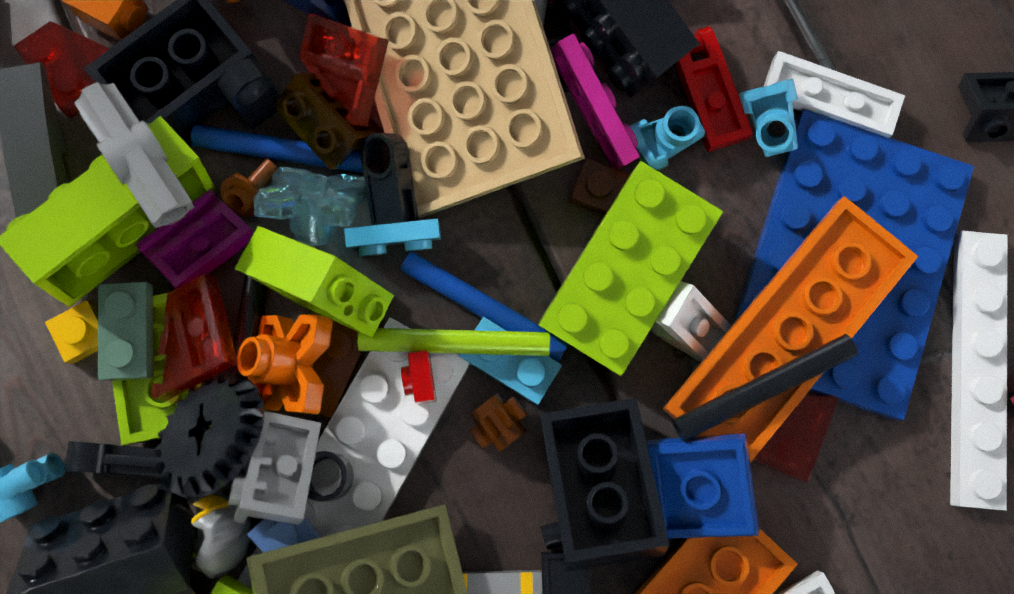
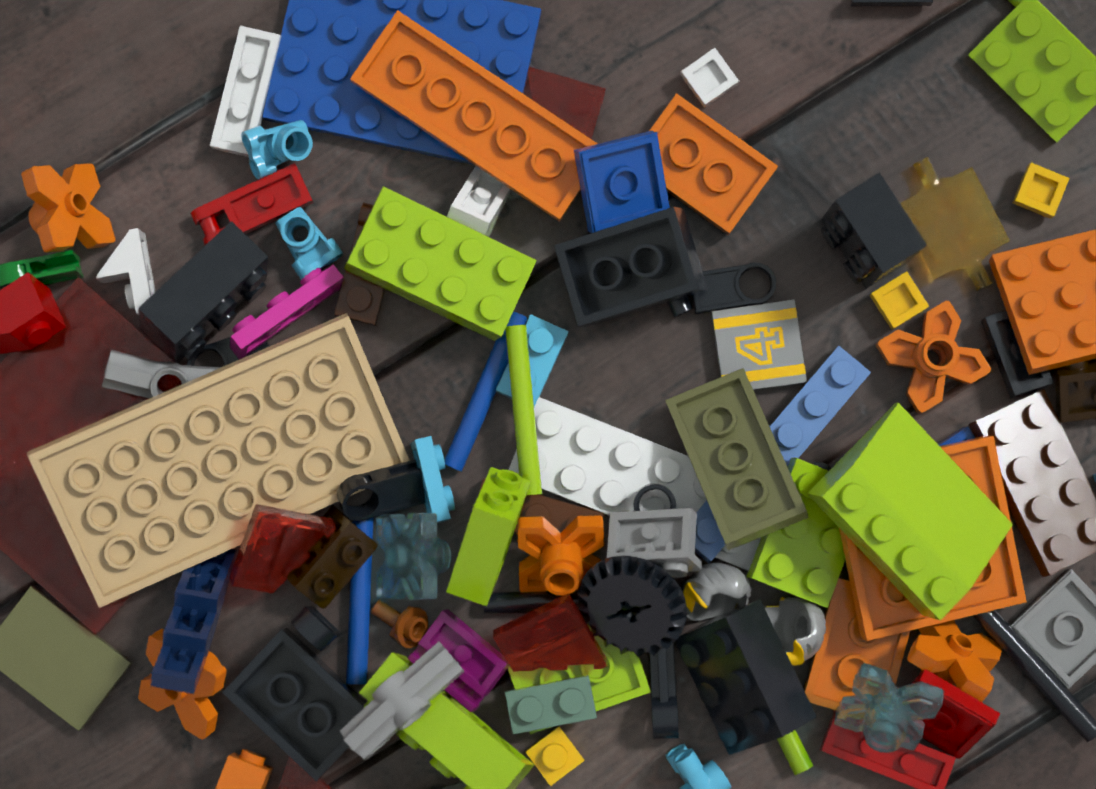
camera: 90 degrees left, 5 degrees up
(419, 378) = (560, 435): red plate -> none
(498, 422) = (589, 363): reddish brown gear -> none
(764, 387) = (531, 136): black piece -> none

